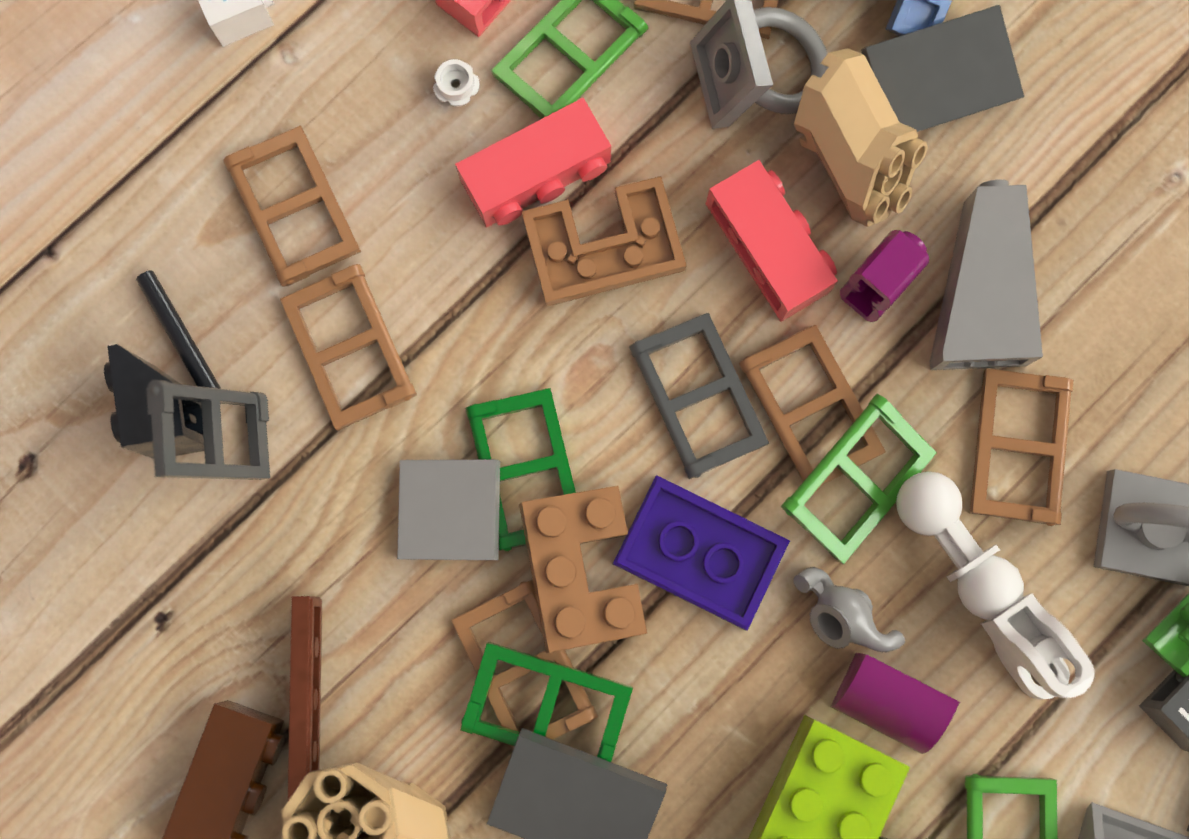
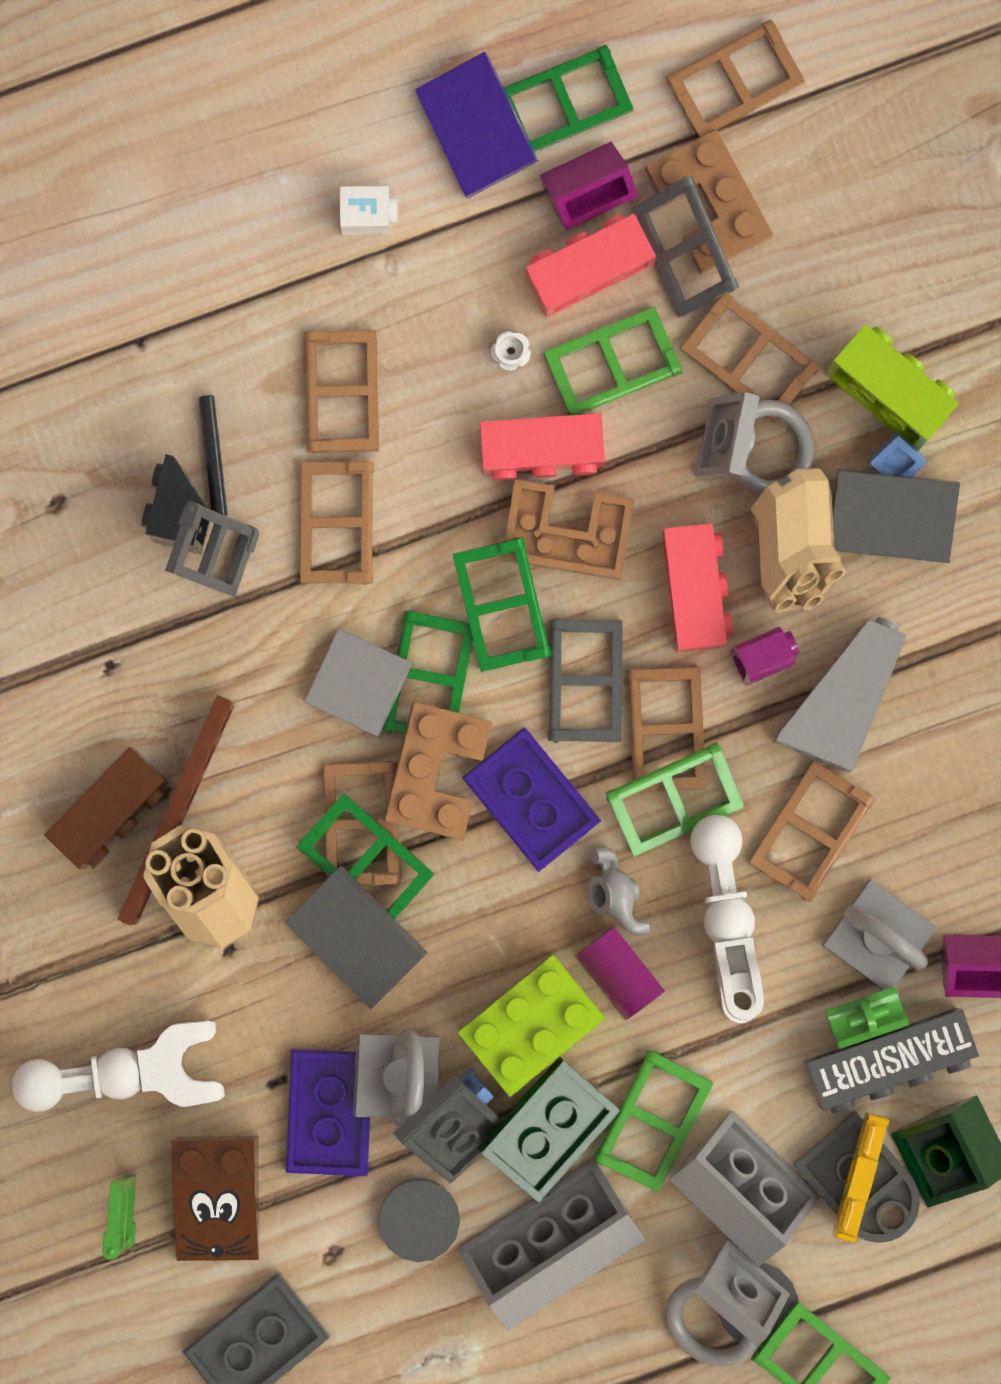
camera: 30 degrees right, 5 degrees up
(635, 383) = (518, 546): none -> green window

